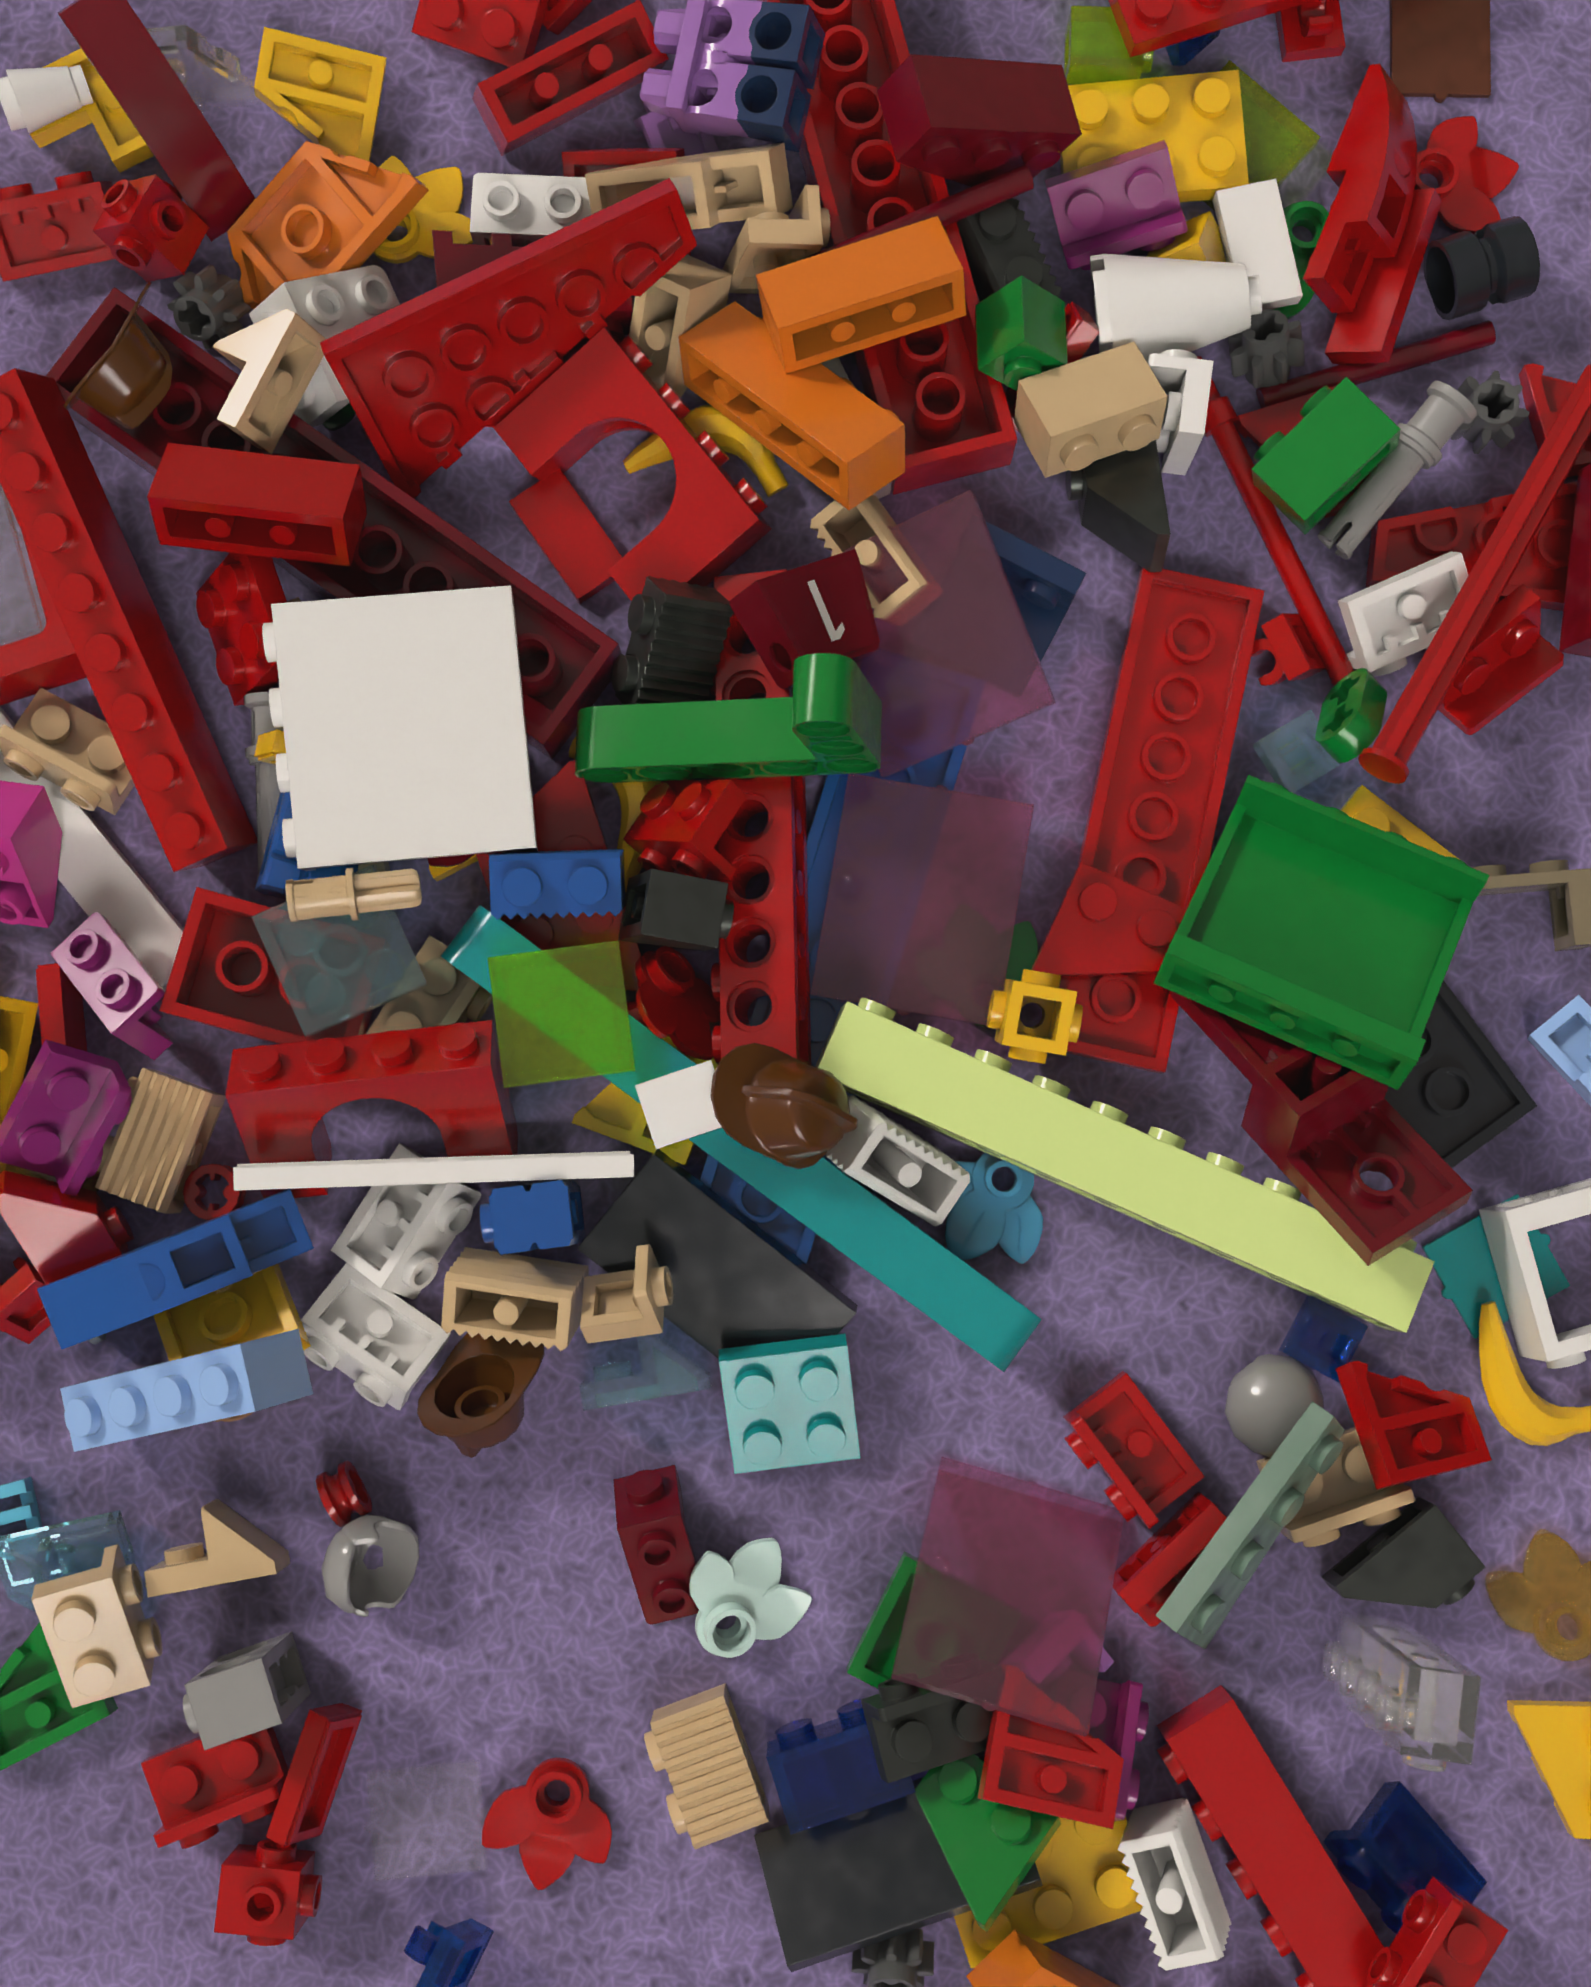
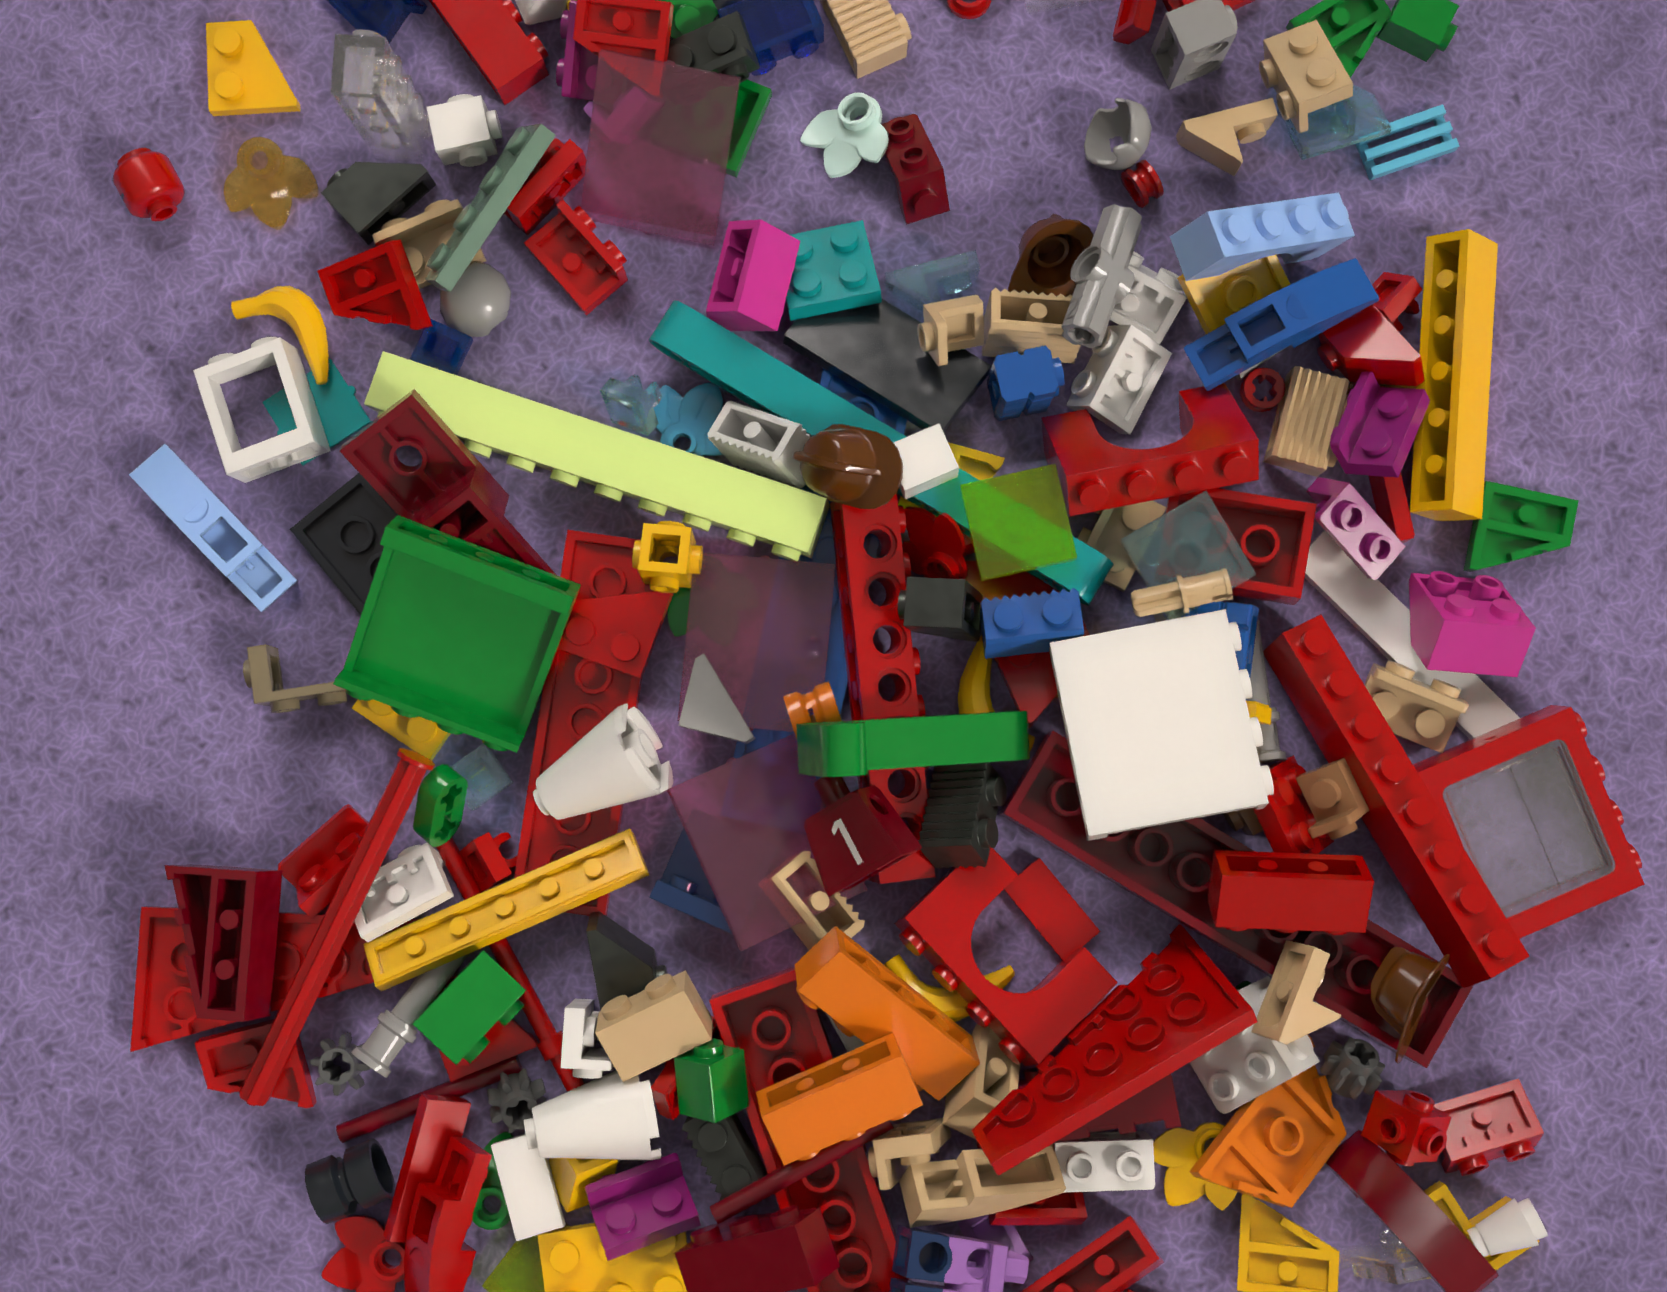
camera: 175 degrees right, 0 degrees up
(188, 628) = (1333, 799): none -> medium nougat bracket
(412, 1351) = (1102, 276): none -> light grey piece
(433, 1170) = (1100, 405): white tile -> none
(683, 824) = (940, 676): red bracket -> none
(856, 798) = (820, 700): none -> orange wheel
(893, 1392) = (752, 277): none -> dark pink slope
(988, 809) = (710, 707): none -> light grey slope
(1071, 1234) = (631, 404): none -> clear light blue tile
(1130, 742) = (605, 768): none -> white cone
(1270, 579) = (505, 910): none -> yellow tile
(1280, 1648) = (464, 130): none -> white brick

